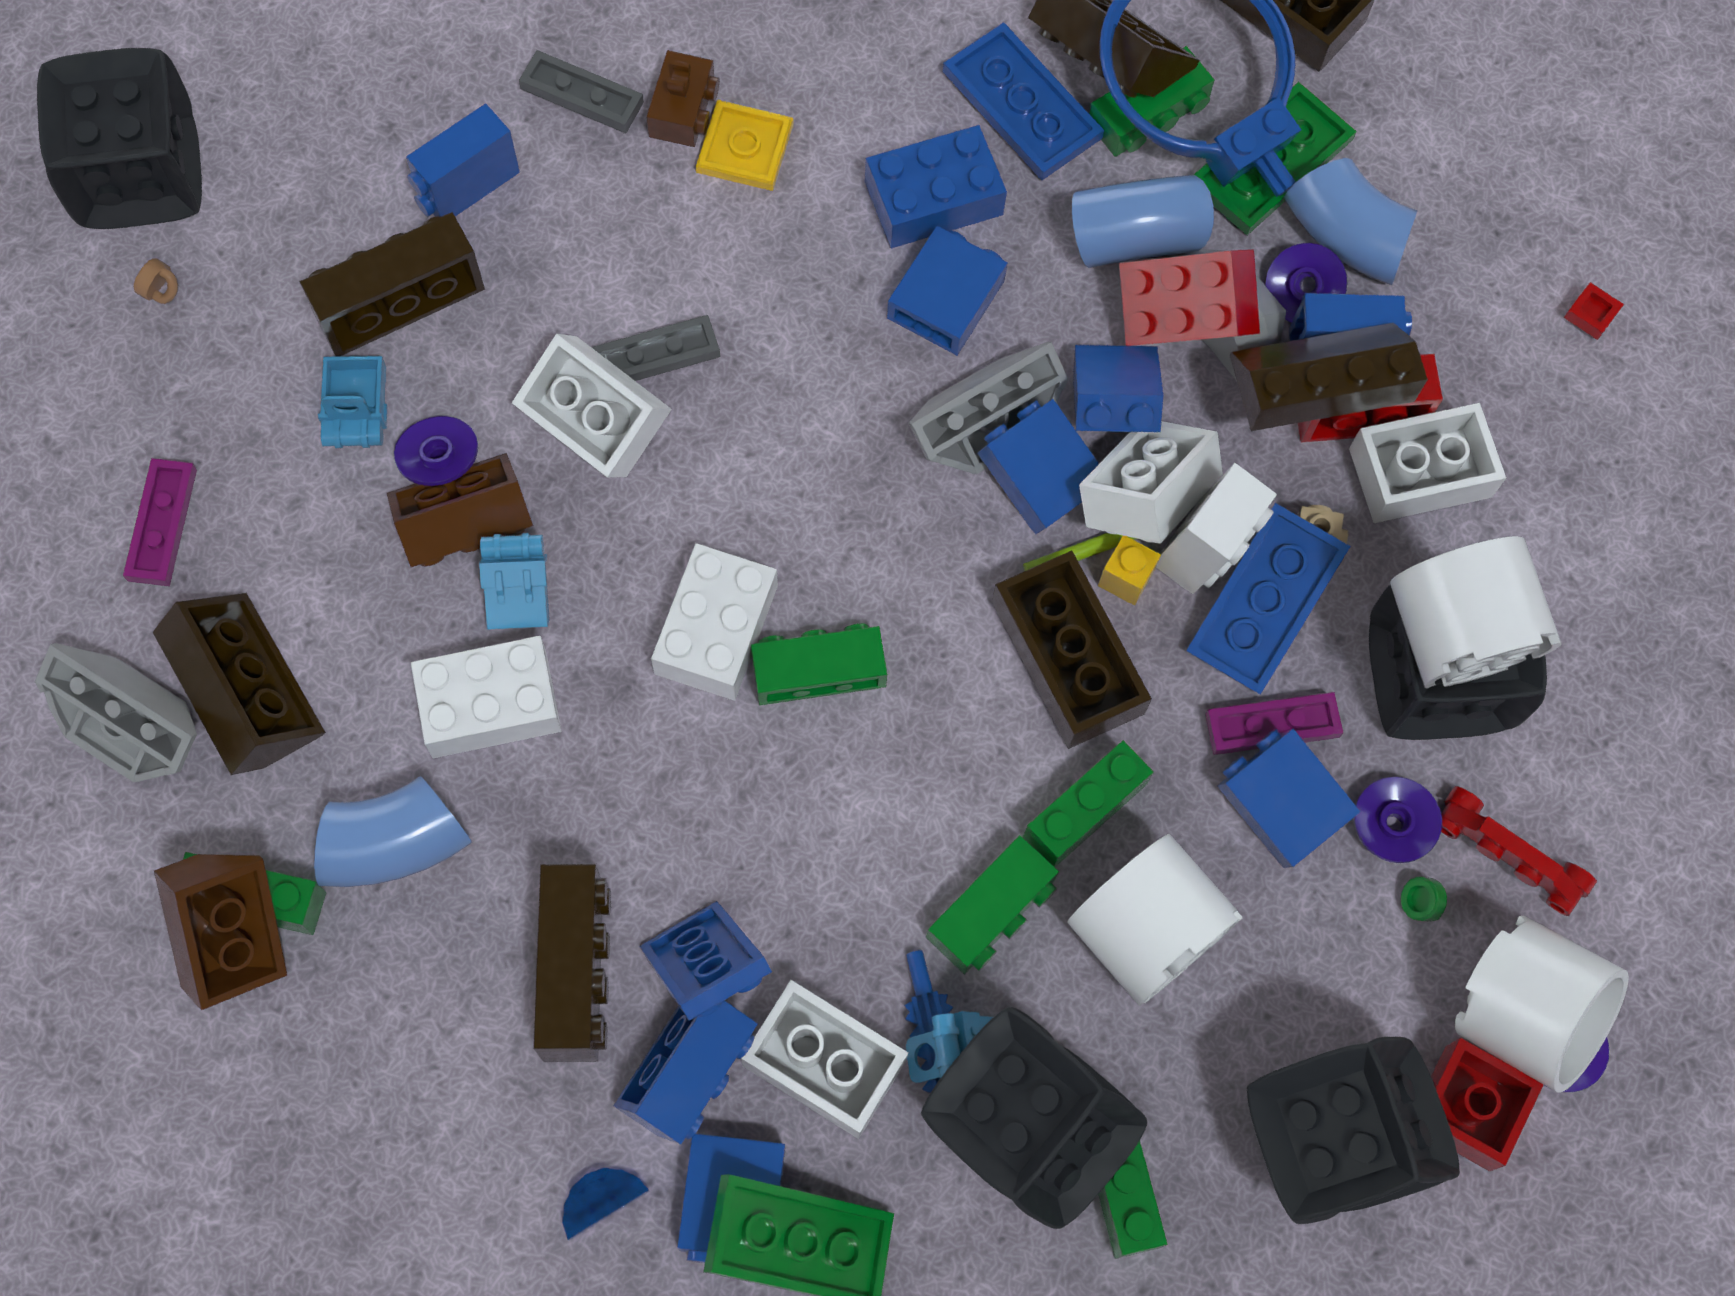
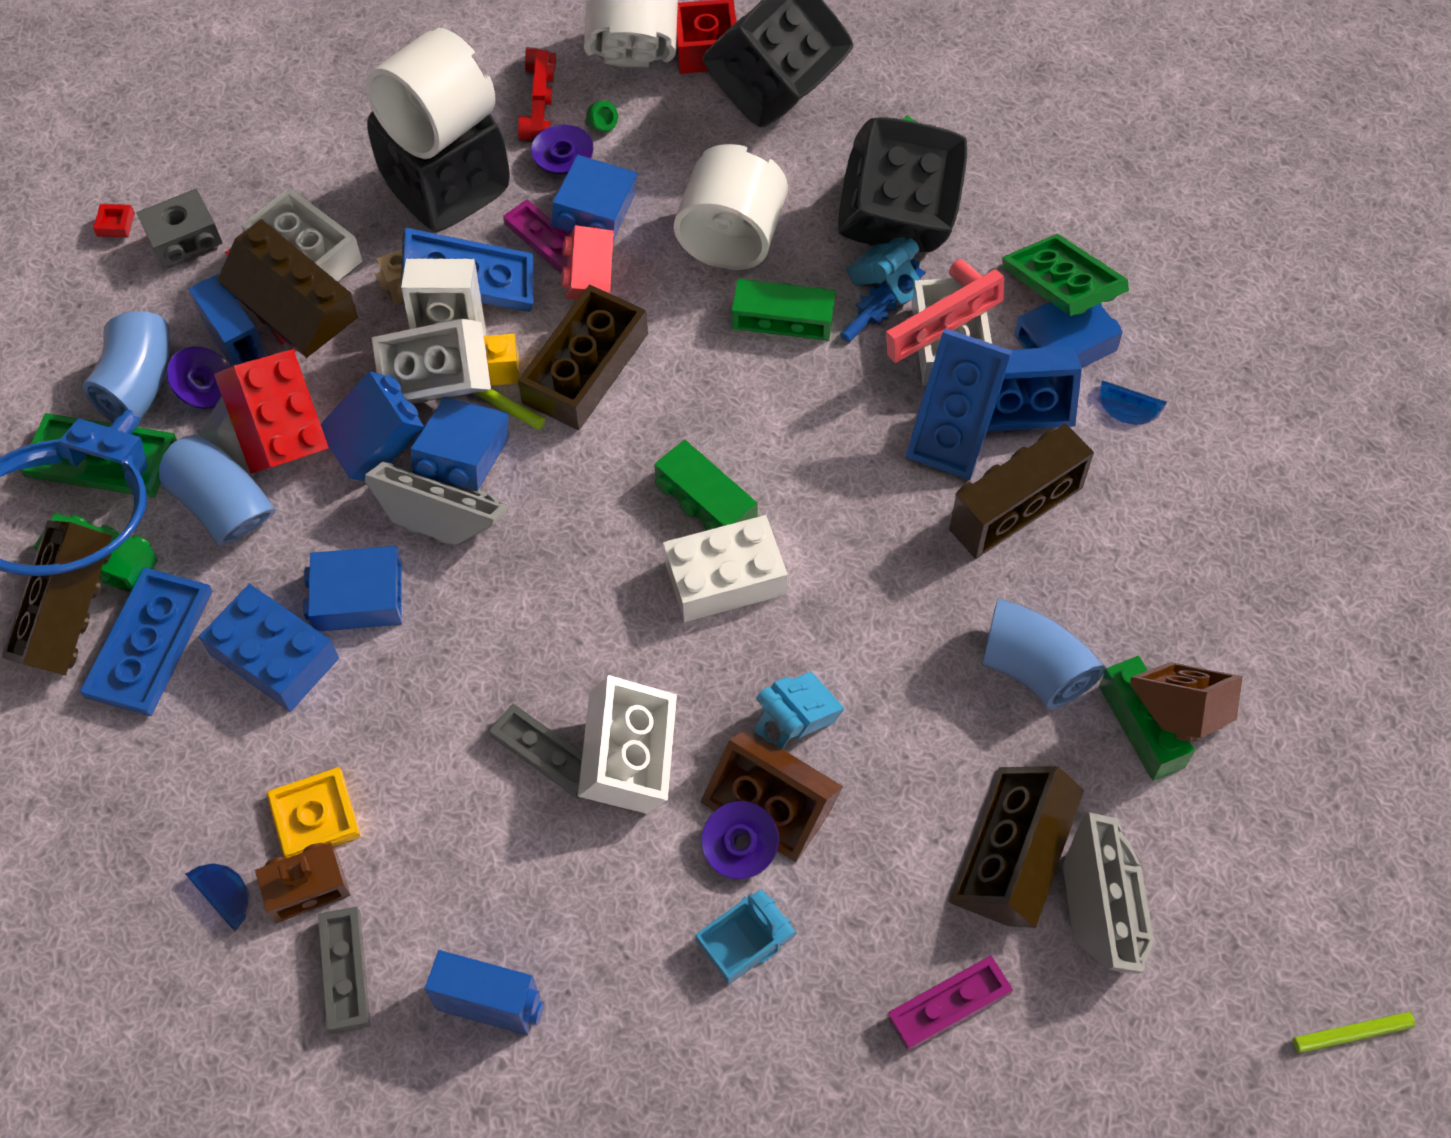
camera: 120 degrees left, 10 degrees down
(393, 284) = (630, 965): dark brown brick -> none
(485, 697) = (893, 670): white brick -> none
(726, 45) = (223, 890): none -> clear blue tile
(823, 1099) = (975, 298): none -> coral piece
(1088, 804) = (680, 295): green brick -> none
(1192, 728) = (588, 260): none -> coral brick
(1514, 372) = (179, 228): none -> dark grey brick

